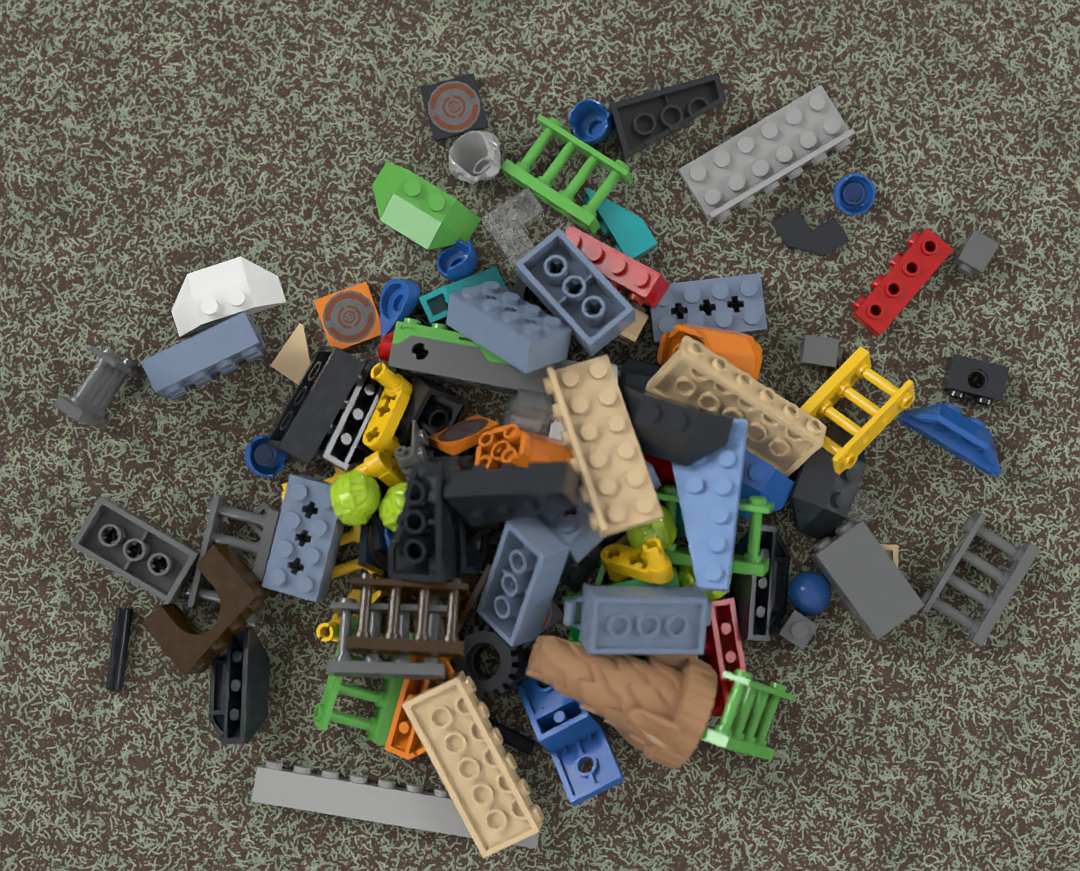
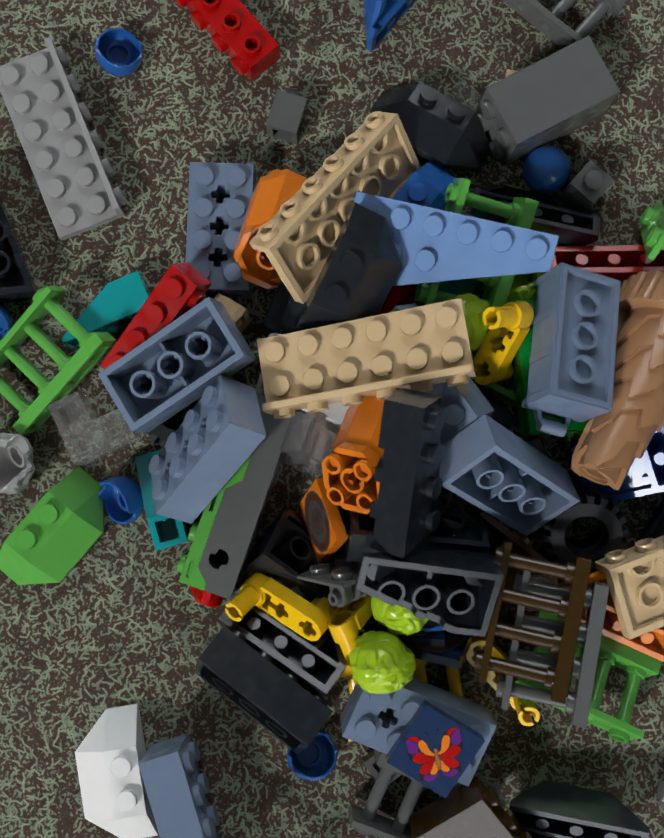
camera: 90 degrees left, 0 degrees up
(291, 551) = (435, 749): none -> dark blue tile
(294, 356) = (201, 703): tan tile -> none
(349, 316) = (166, 632): tile -> none
(397, 302) = (158, 576): blue piece -> none
(798, 236) = (154, 122): black tile -> none
(840, 386) = (329, 96): yellow fence -> none

